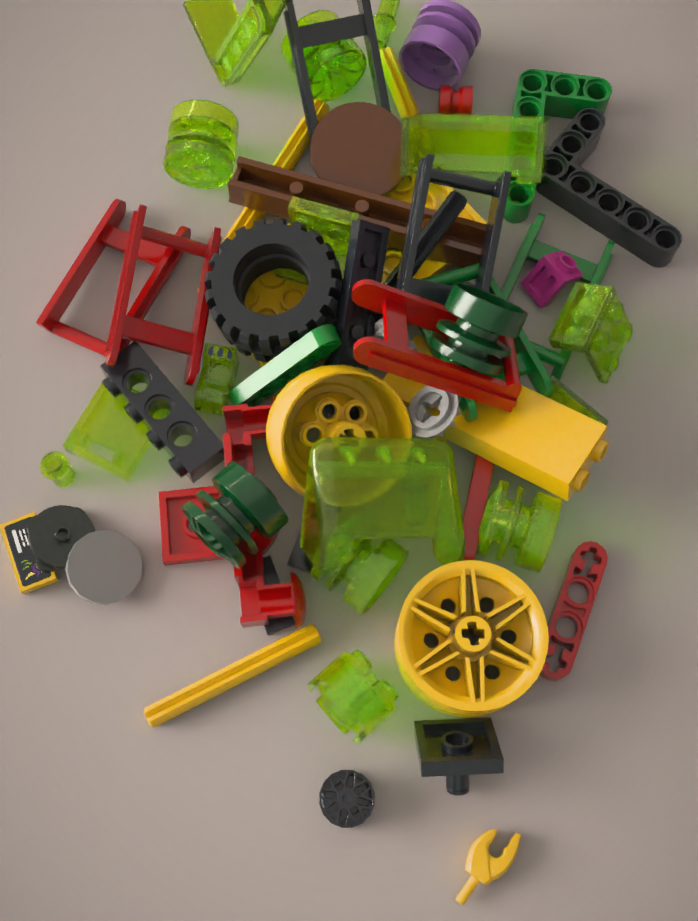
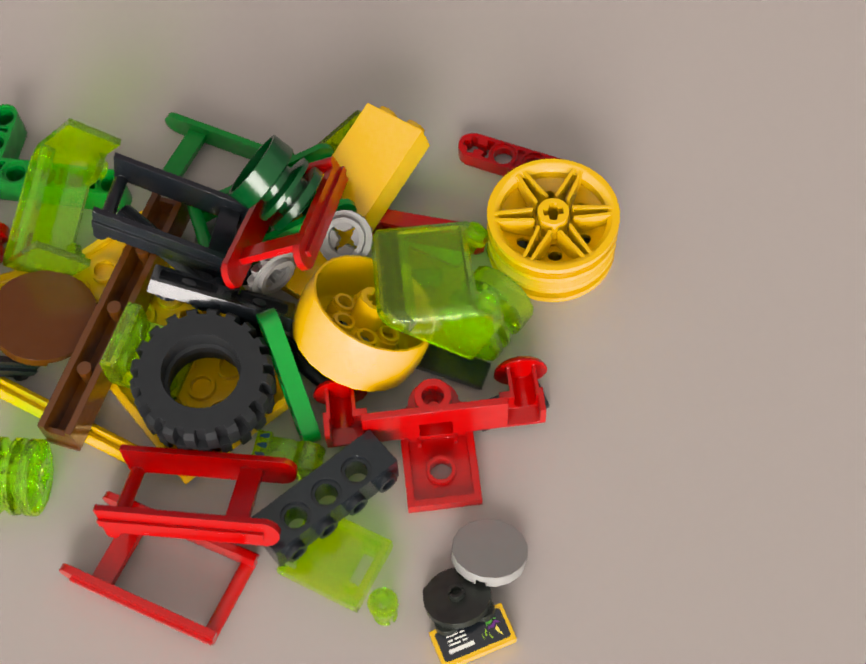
camera: 85 degrees left, 10 degrees down
(232, 675) = (592, 435): yellow axle -> none
(242, 507) = (455, 384): dark green wheel -> none
(346, 798) = (695, 333): black wheel -> none
(354, 695) = (607, 319): clear neon green brick -> none
(458, 750) = (647, 239): black tile -> none
(485, 867) = (738, 229): yellow hand -> none
(519, 526) = (449, 184): clear neon green wheel -> none
(550, 277) = (200, 163): dark pink bracket -> none
(567, 177) = (135, 115): black beam -> none
(595, 325) = (251, 125): clear neon green bracket -> none

